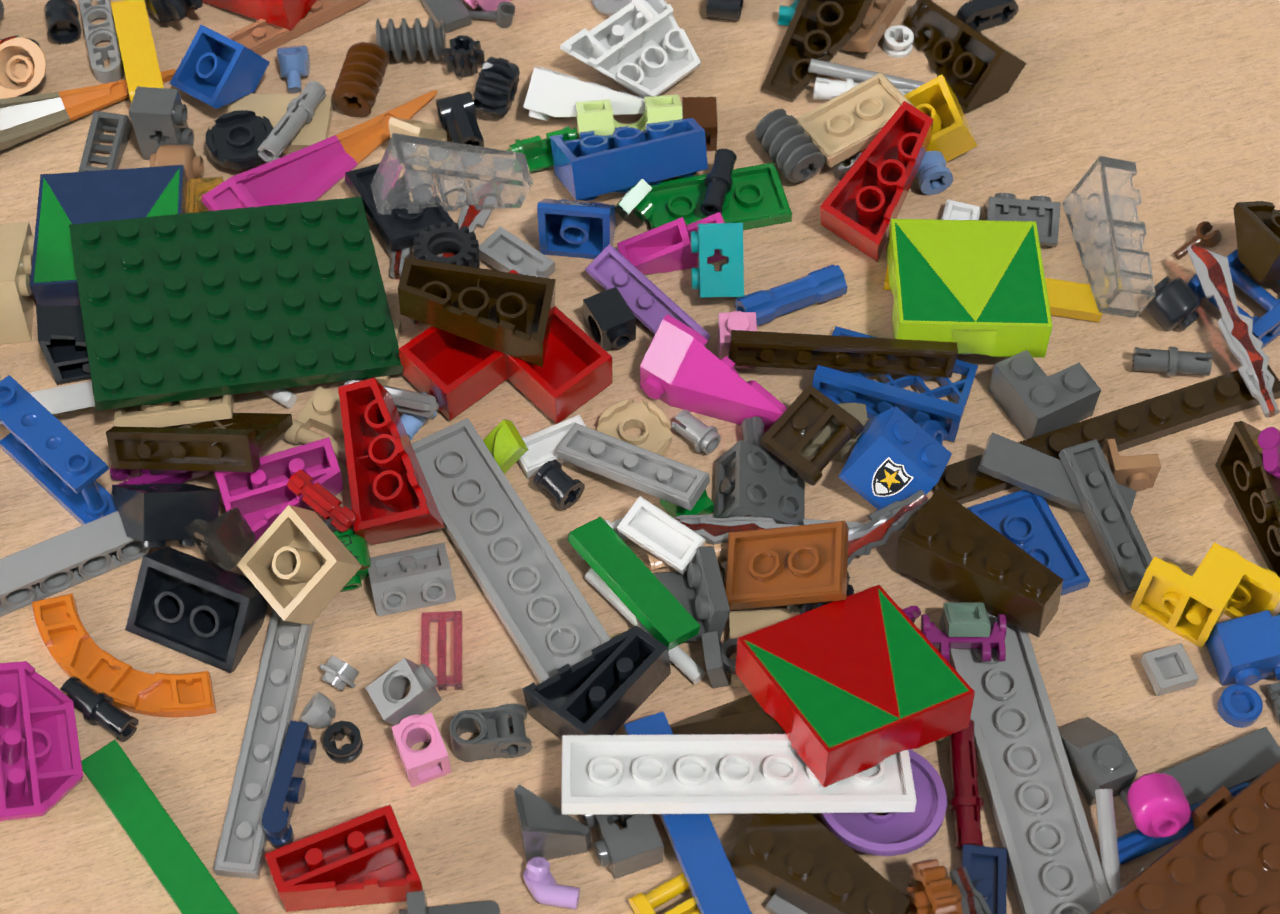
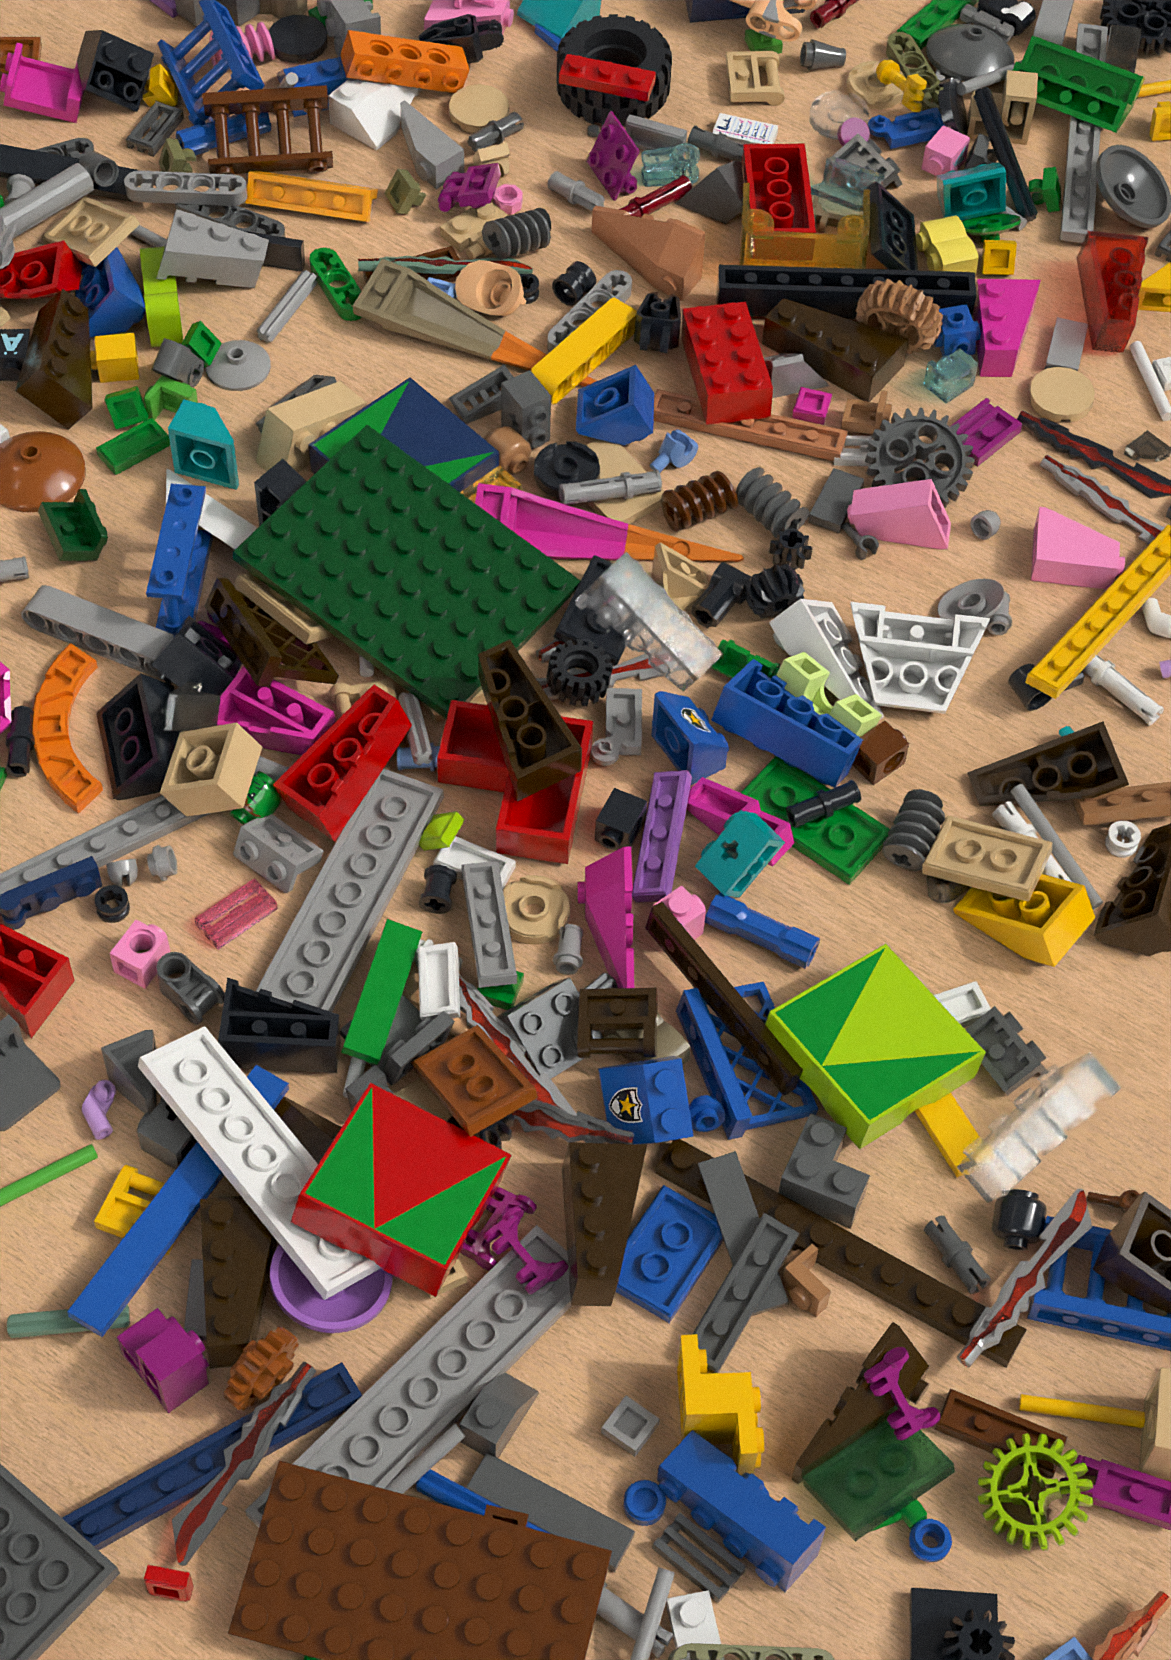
camera: 50 degrees right, 0 degrees up
(322, 501) = (275, 745): red axle -> none
(389, 691) = (173, 909): light grey brick -> none
(635, 202) = (746, 758): tile -> none
(878, 182) = (931, 912): red wedge -> none
(933, 174) = (991, 951): medium blue wheel -> none
(965, 793) = (397, 1333): dark red pin -> none
(966, 619) = (539, 1240): sand green tile -> none
(1158, 805) = (479, 1479): dark pink head -> none

